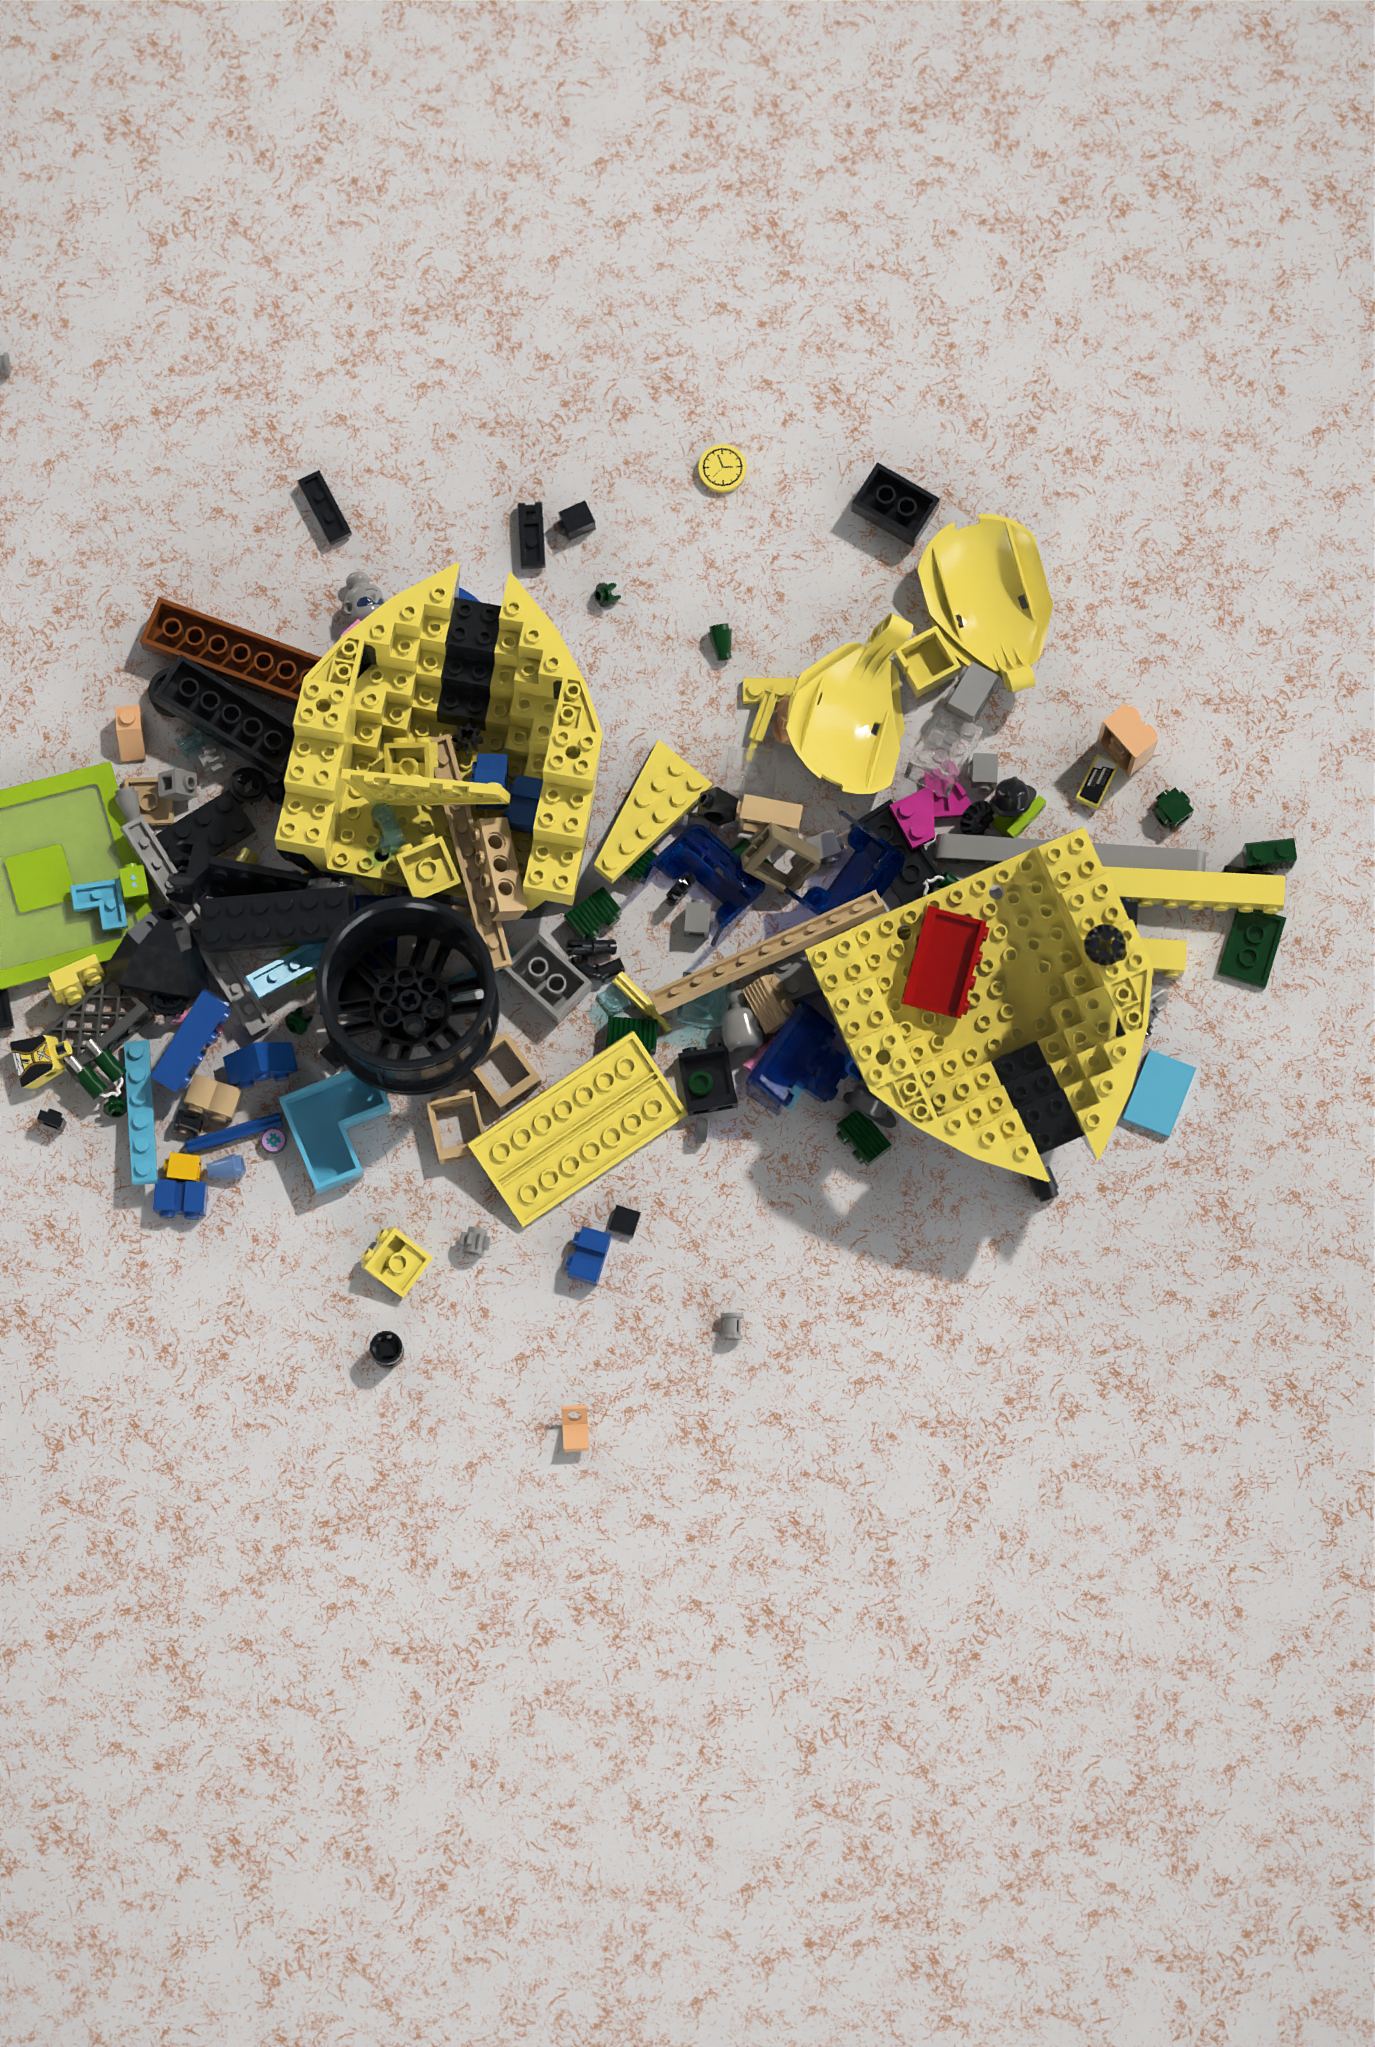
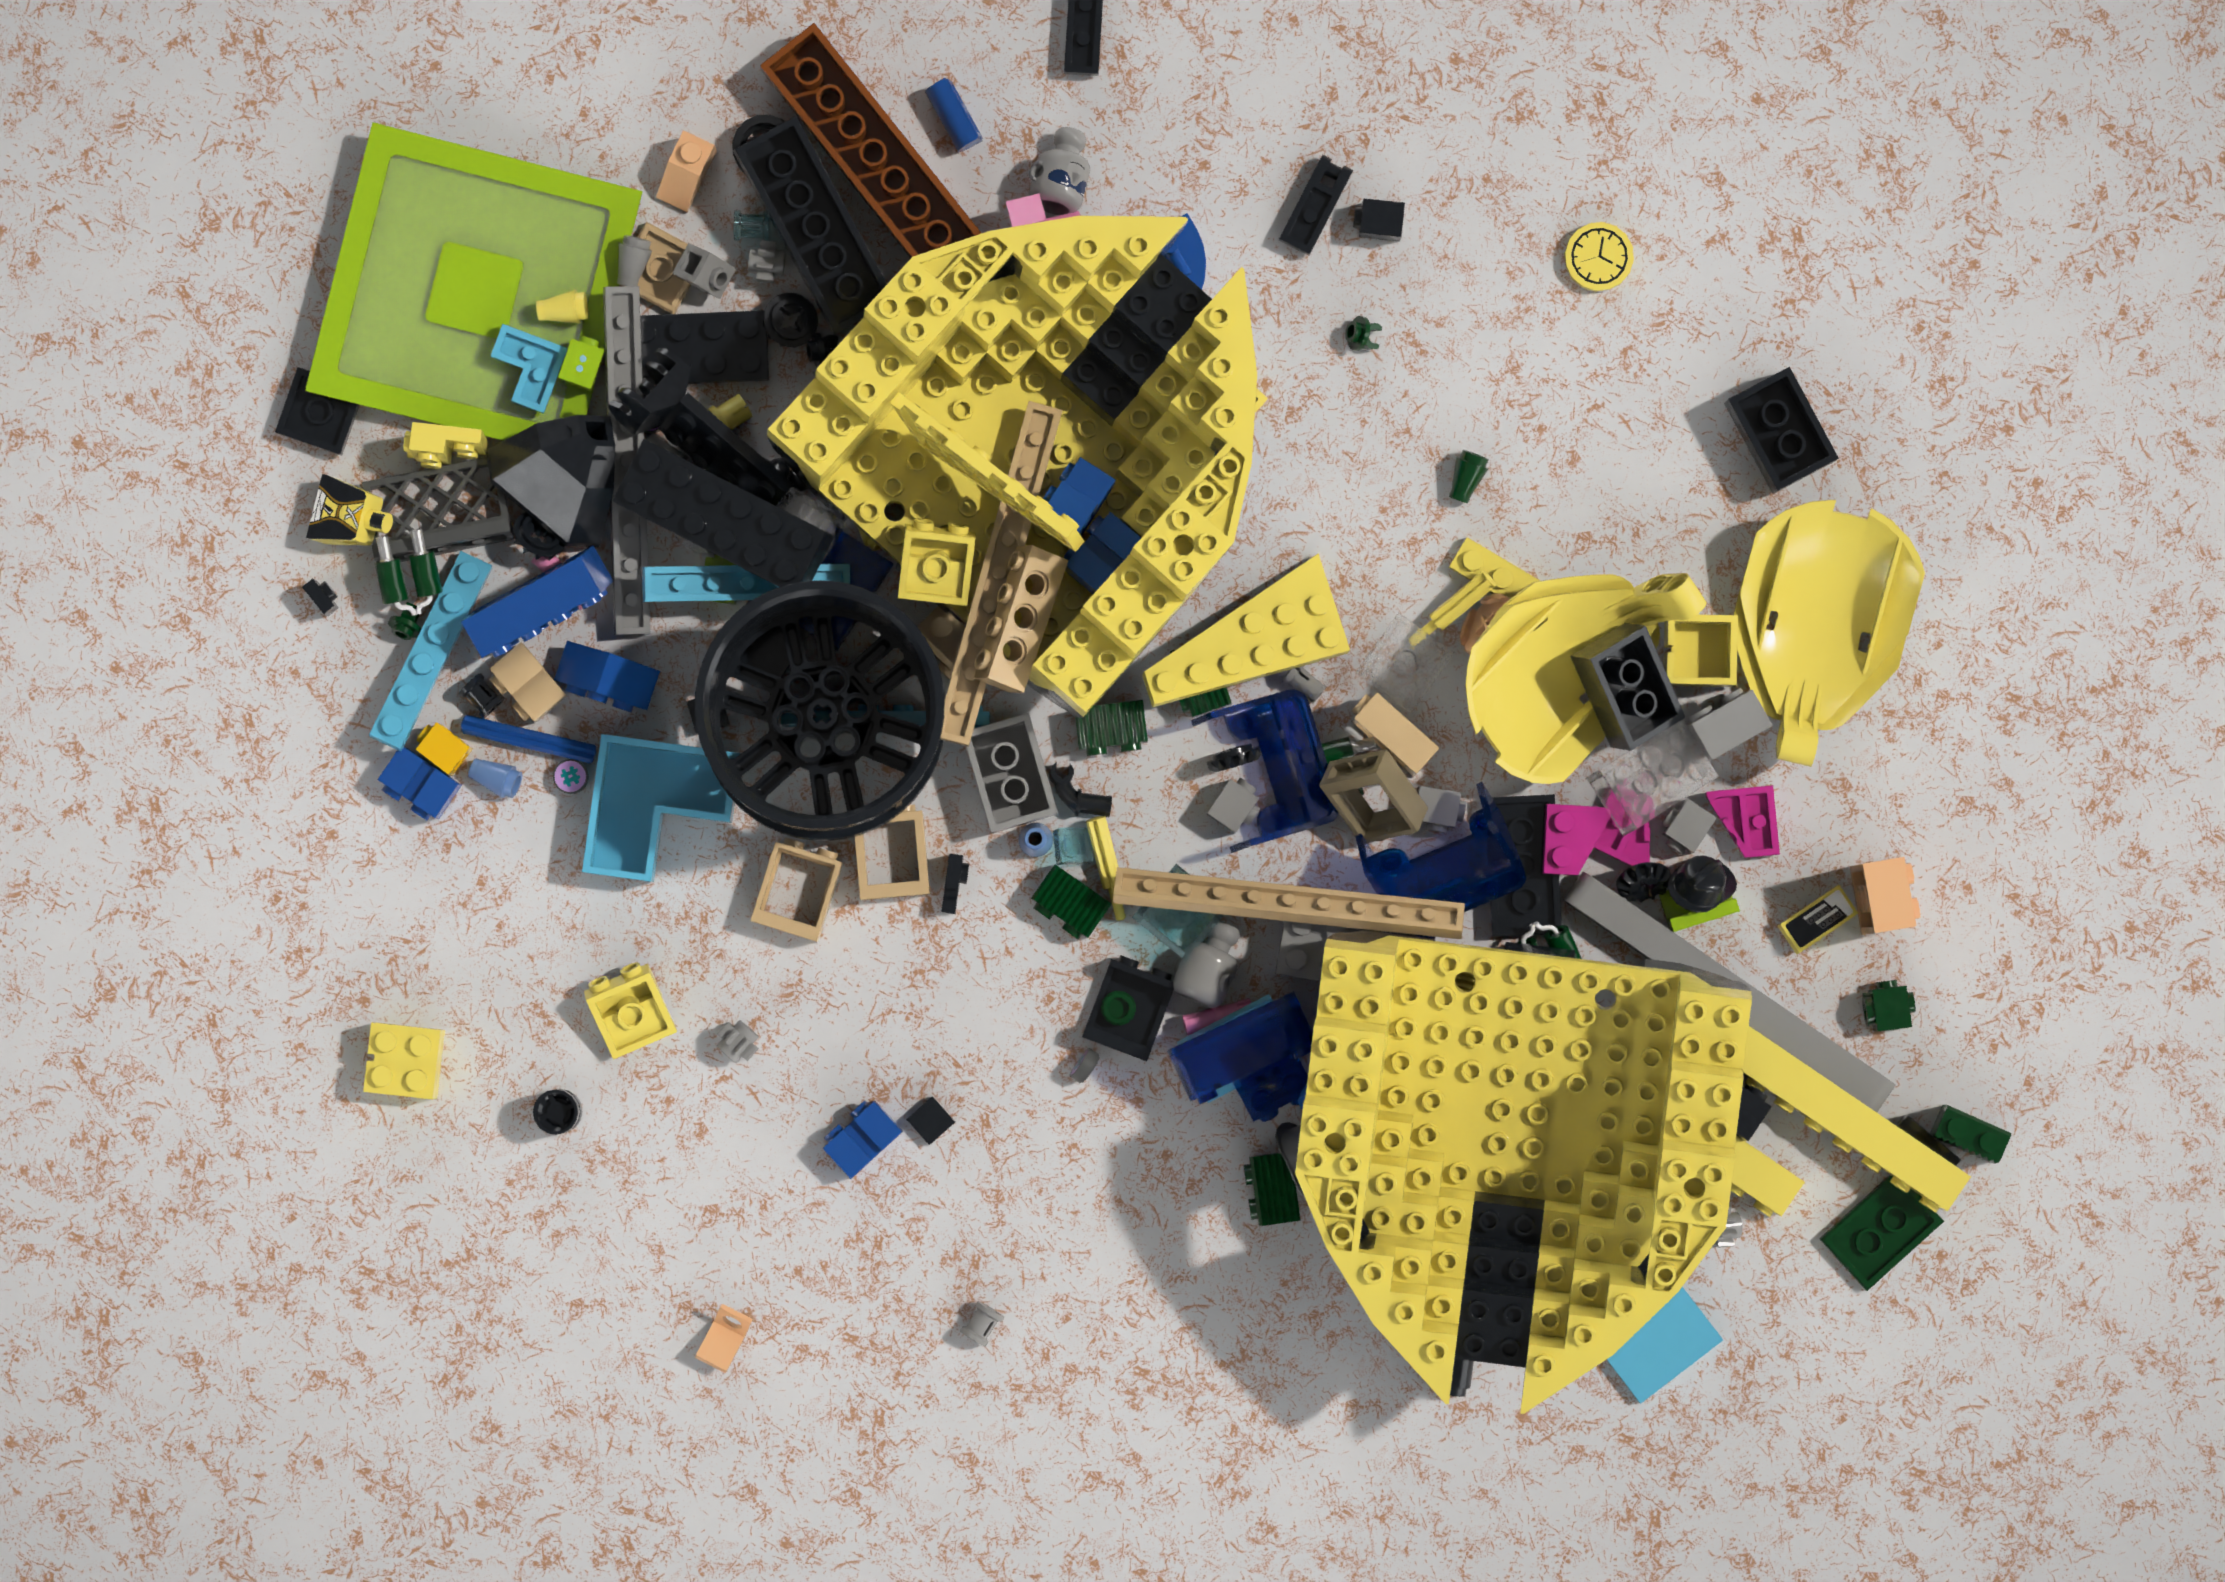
camera: 30 degrees right, 10 degrees up
(102, 856) = (566, 307): none -> light yellow cone
(271, 1375) = (404, 1060): none -> light yellow piece
(277, 606) = (953, 114): none -> blue brick
(296, 1023) = (678, 649): dark green plate -> none
(385, 820) = (921, 472): clear light blue leg -> none
(411, 757) = (994, 419): light yellow plate -> none
(466, 745) = (1087, 421): black gear -> none
(551, 1060) = (956, 873): none -> black plate
(577, 1128) = (938, 978): light yellow plate -> none
(589, 1016) = (1043, 847): none -> medium blue cone
(591, 947) = (1084, 766): black pin -> none
(717, 806) = (1338, 683): black brick -> none
(769, 1002) = (1256, 965): tan brick -> none
(895, 705) = (1628, 686): none -> black brick
(944, 962) = (1490, 1049): red panel -> none
(1017, 746) = (1748, 818): none -> dark pink wing
(1092, 943) = (1693, 1159): black gear -> none

